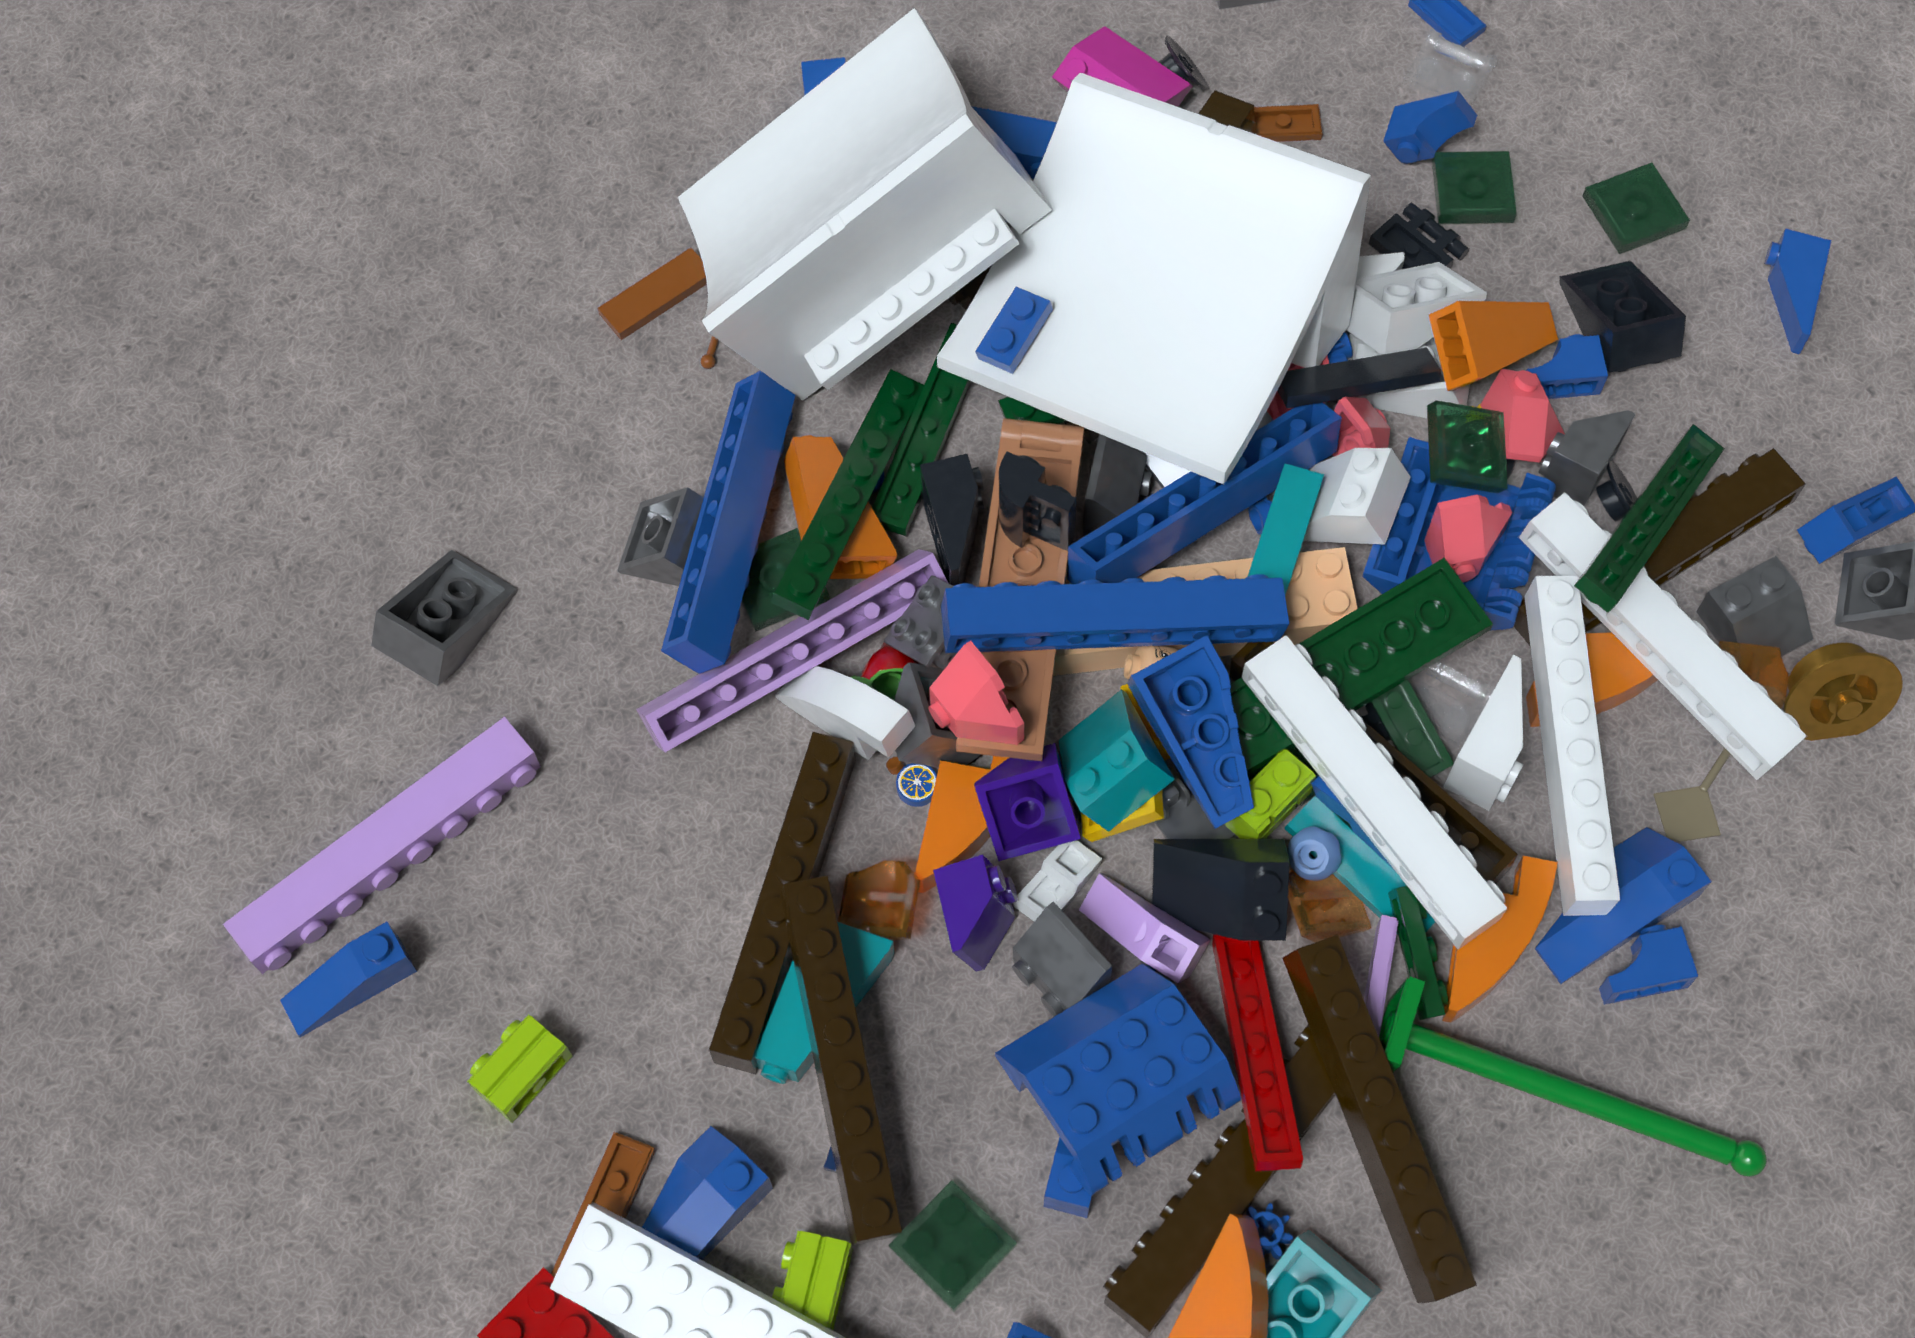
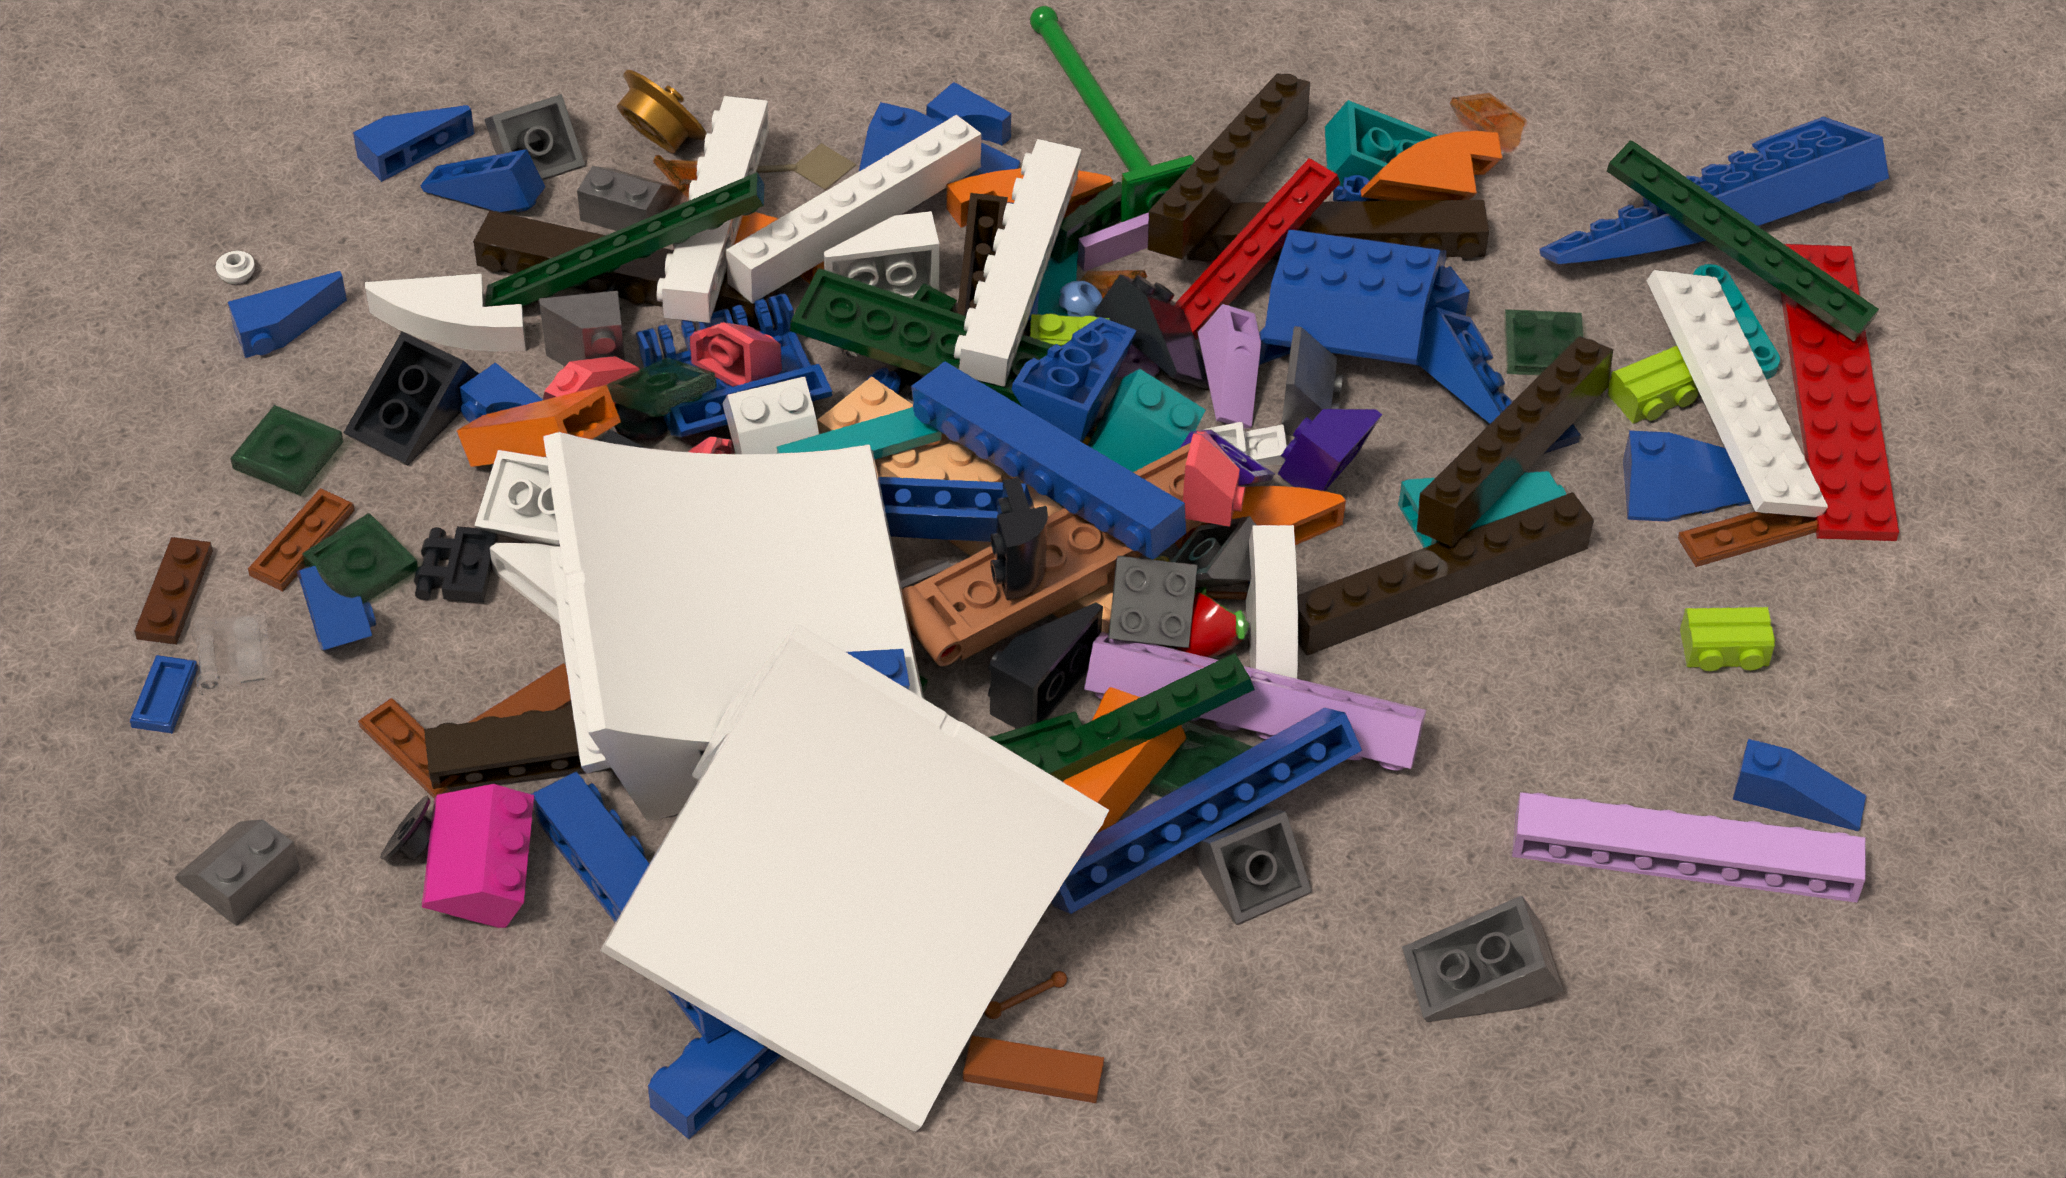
camera: 135 degrees left, 15 degrees down
(881, 900) = (1377, 518): clear orange slope -> none
(983, 1131) = (1457, 359): none -> blue wedge
(1534, 172) = (310, 526): none -> dark orange tile
(1546, 71) = (173, 590): none -> reddish brown plate
(1705, 395) = (448, 312): none -> white slope
(1885, 299) = (235, 267): none -> white plate

